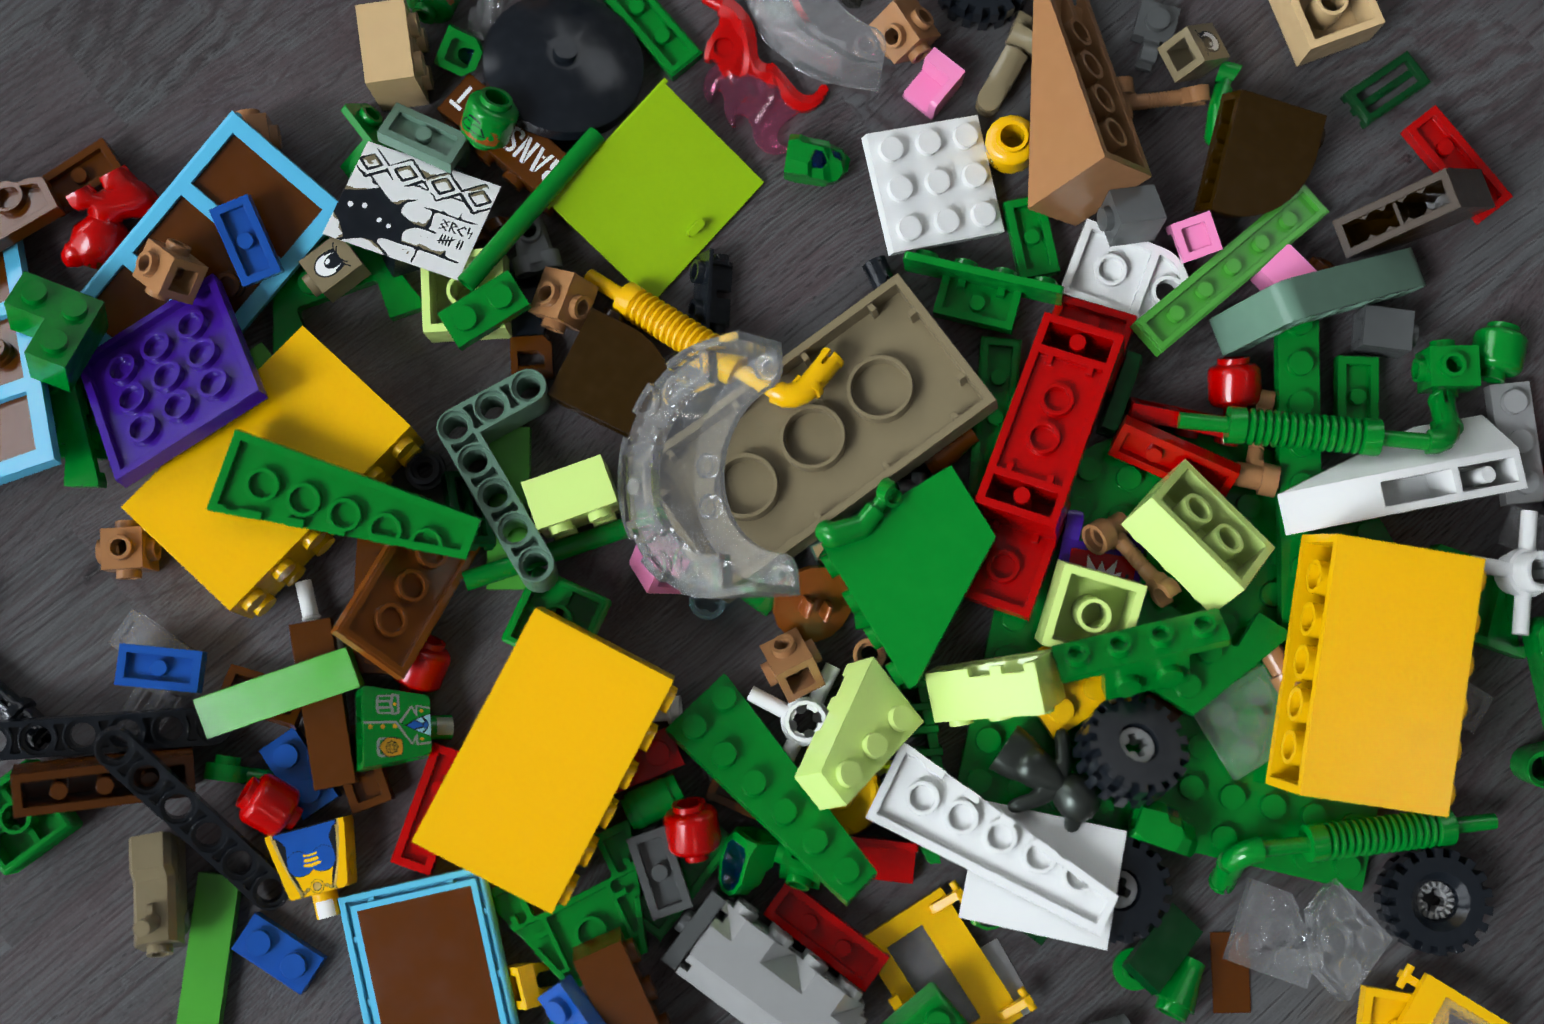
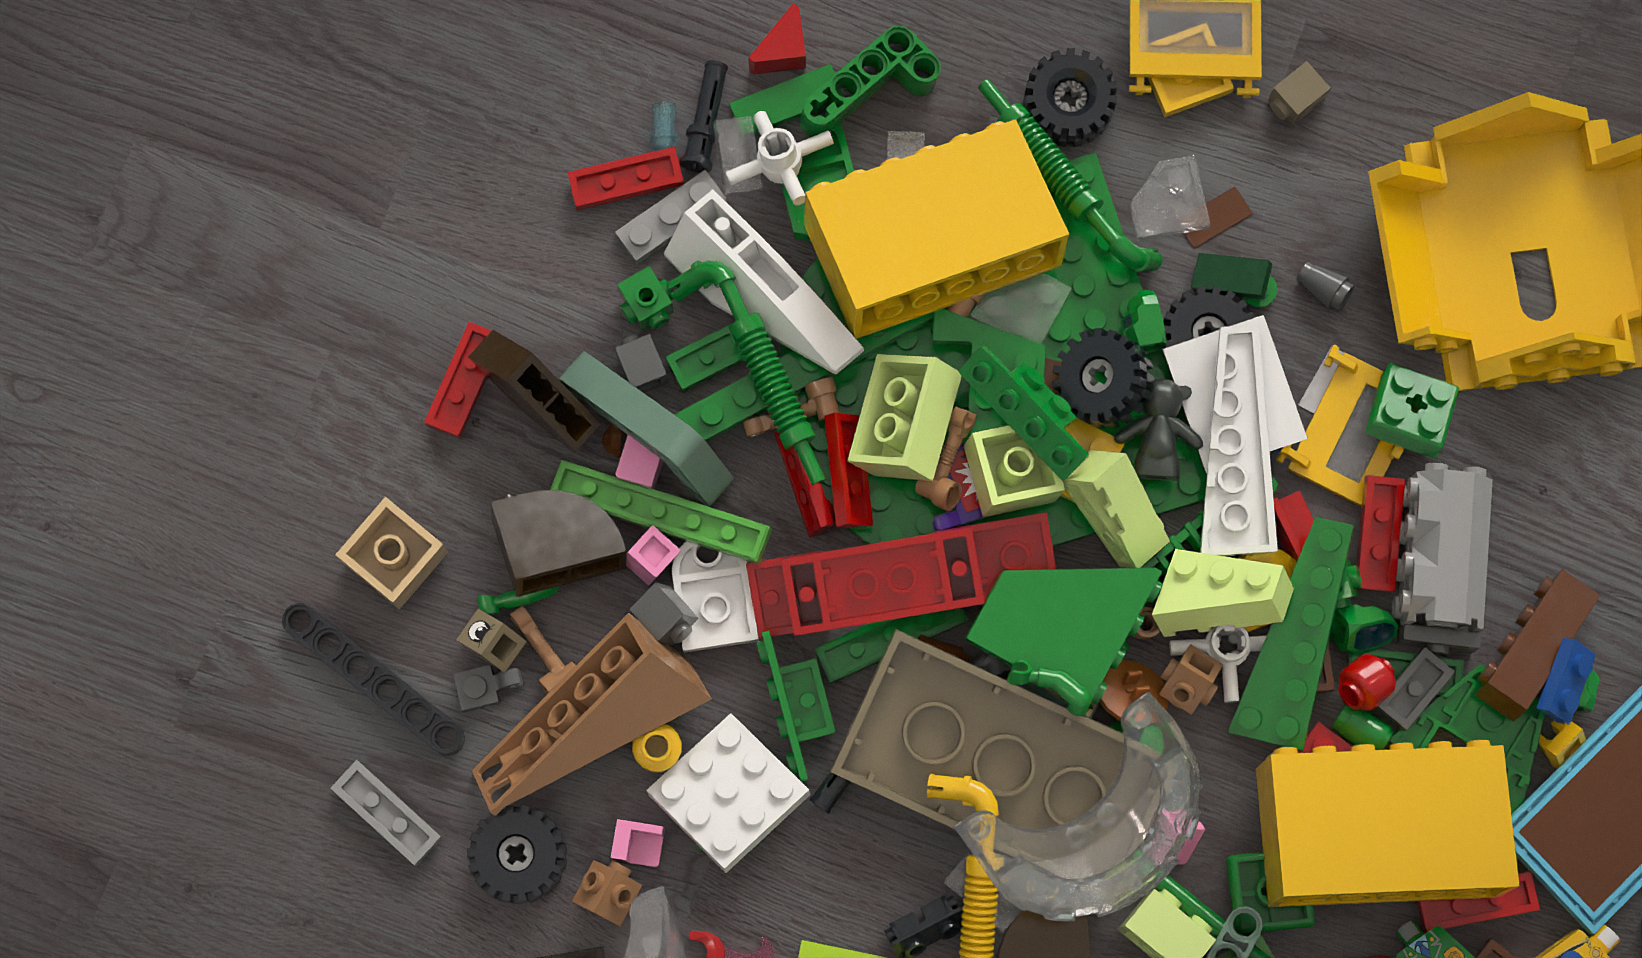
camera: 120 degrees left, 5 degrees down
(814, 161) = (761, 905): green rock -> none
(1007, 67) = (584, 790): dark tan piece -> none
(1030, 240) = (728, 686): green plate -> none
(1120, 395) = (810, 543): dark green tile -> none
(1181, 991) = (1252, 244): green cone -> none
(1234, 382) = (754, 457): red head -> none
(1343, 940) = (1141, 147): clear plate -> none
(1359, 107) = (455, 483): dark green tile -> none
(1501, 351) = (605, 267): green head -> none

